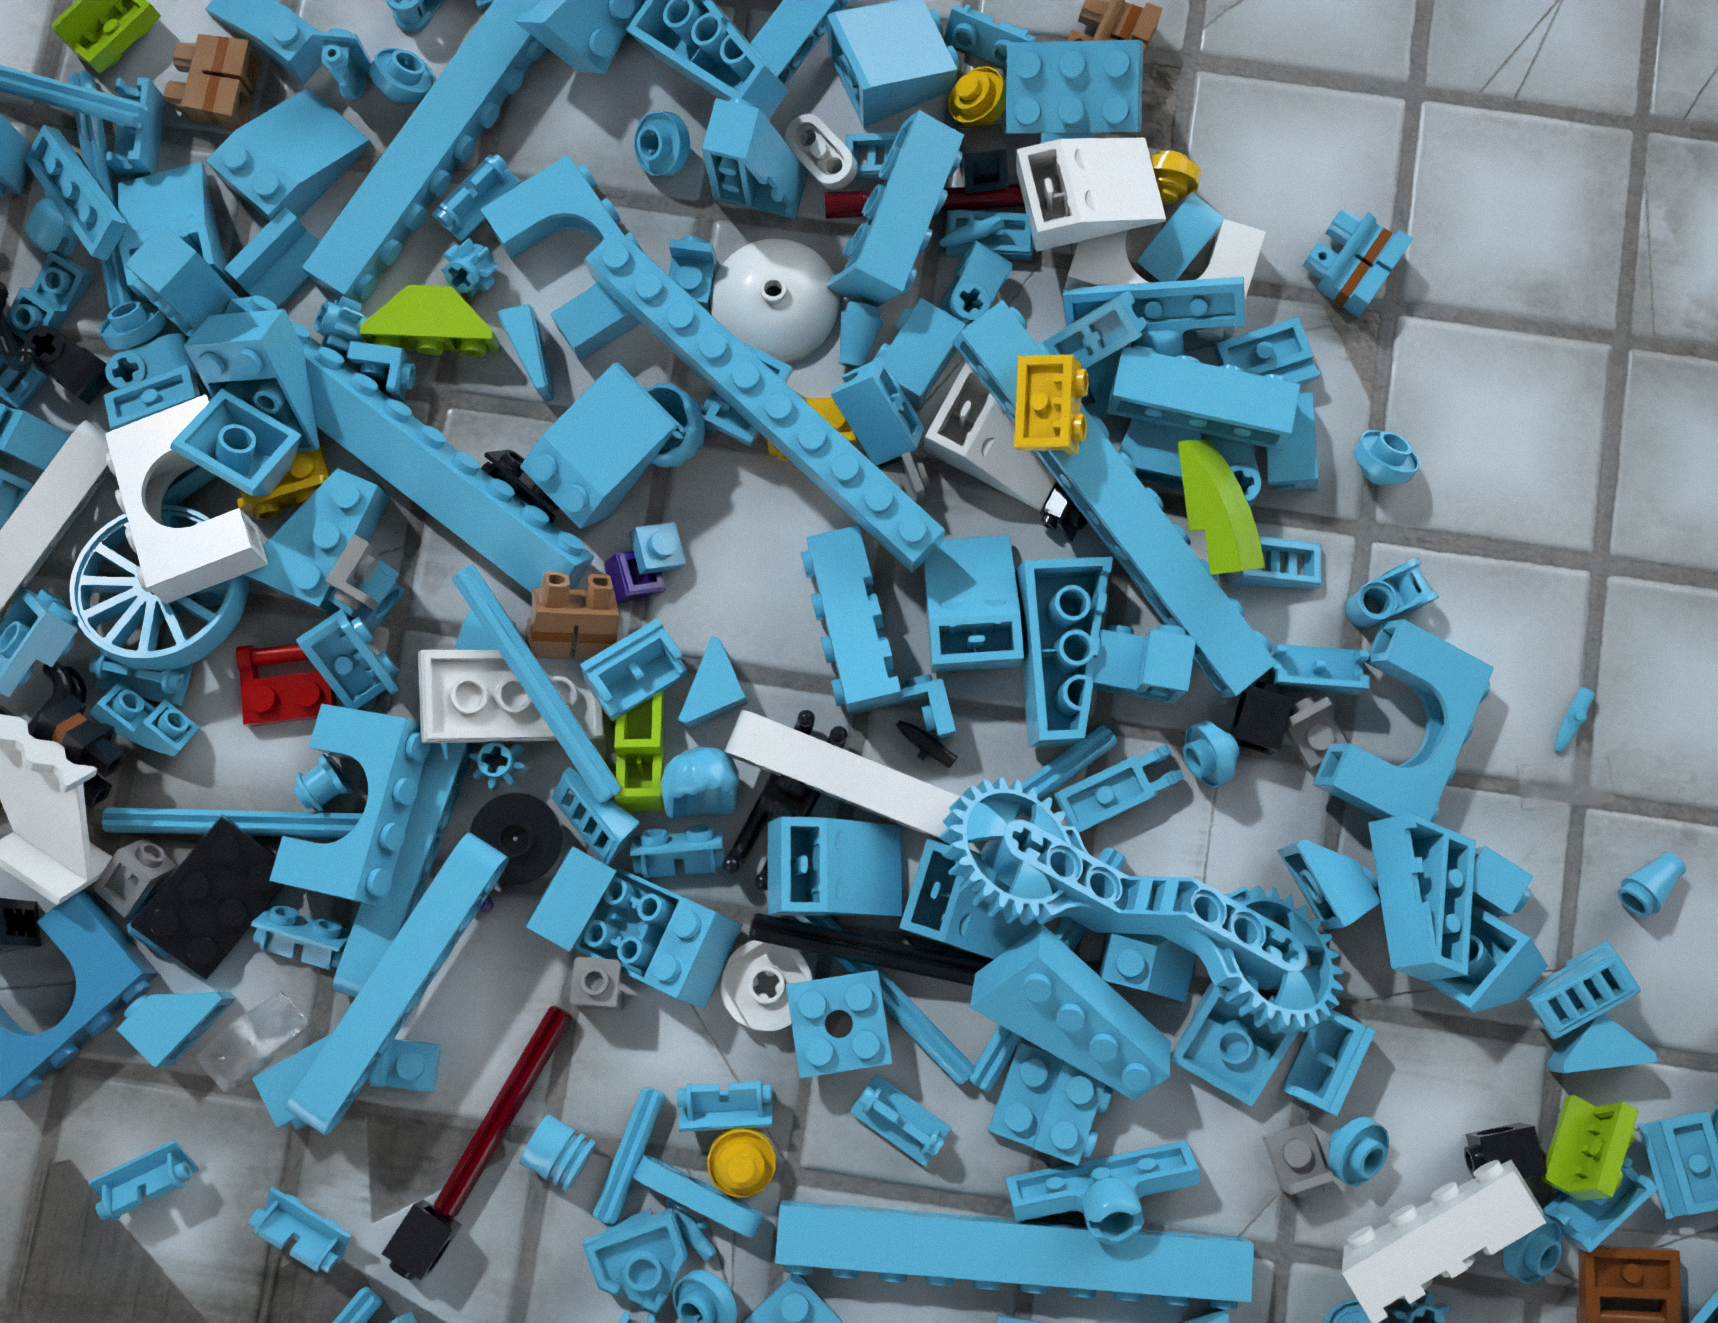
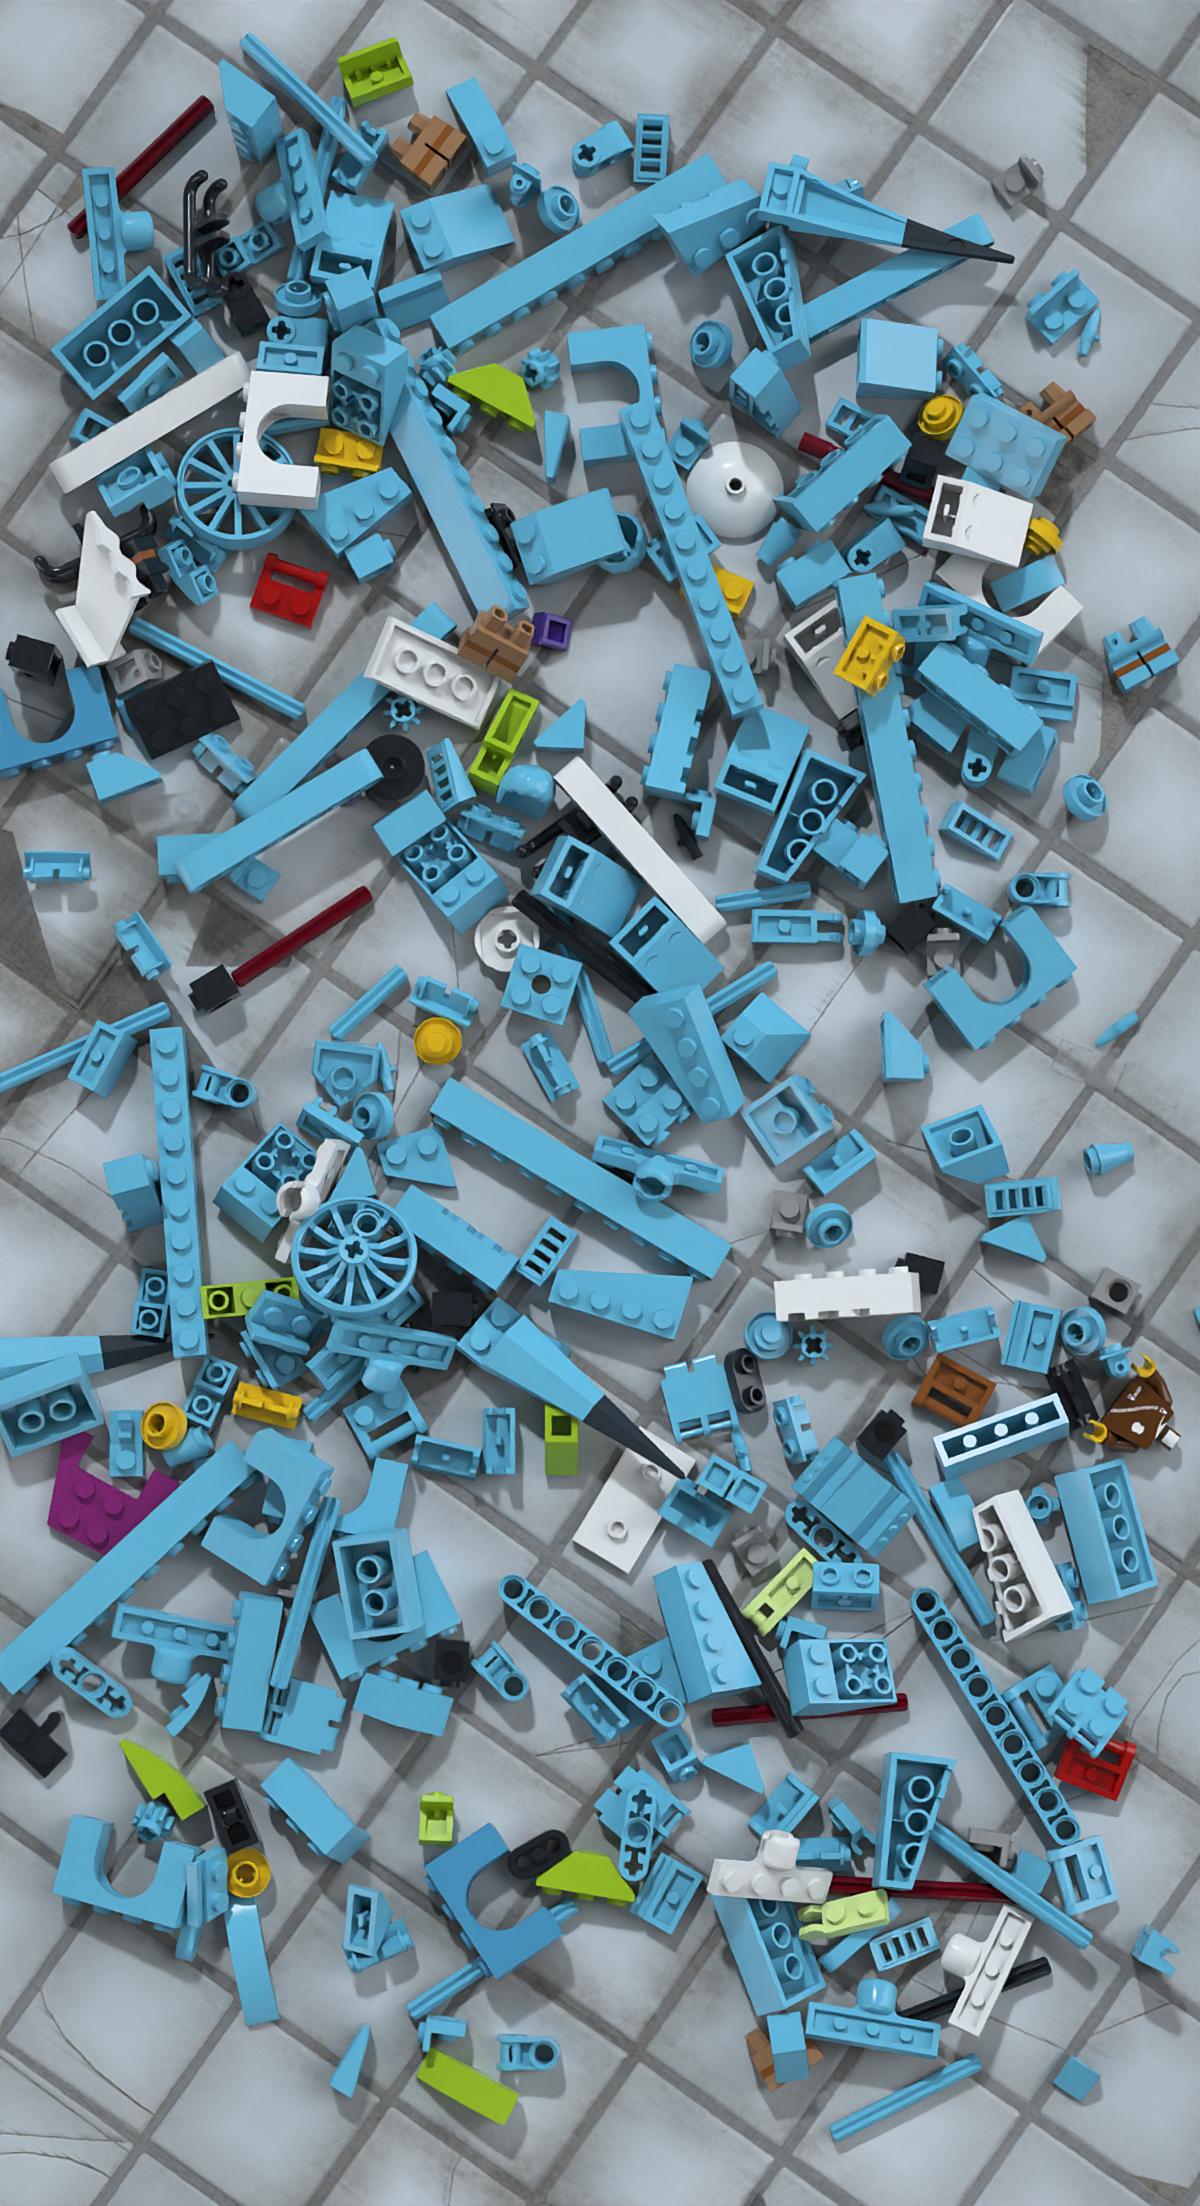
camera: 25 degrees right, 5 degrees up
(239, 444) = (337, 422): medium azure slope -> none
(321, 784) = (282, 670): medium azure brick -> none
(347, 661) = (337, 598): medium azure bracket -> none
(354, 566) = (375, 540): light grey bracket -> none
(365, 859) = (291, 733): medium azure arch -> none
(461, 209) = (568, 318): medium azure hinge -> none
(536, 683) = (454, 674): medium azure axle -> none
(557, 1152) = (325, 977): medium azure piece -> none
(596, 984) = (400, 885): light grey bracket -> none
(634, 669) = (520, 695): medium azure hinge -> none
(657, 548) = (574, 621): medium azure plate -> none
(698, 1196) = (400, 1048): medium azure beam -> none
(823, 153) = (817, 404): white plate -> none
(878, 411) = (763, 603): medium azure hinge -> none
(1057, 877) = (724, 958): medium azure beam -> none
(1220, 508) = (951, 776): lime slope -> none
(1424, 895) = (952, 1086): medium azure wedge -> none
(1499, 883) = (1005, 1105): medium azure brick -> none
(1589, 1148) = (971, 1292): lime bracket -> none

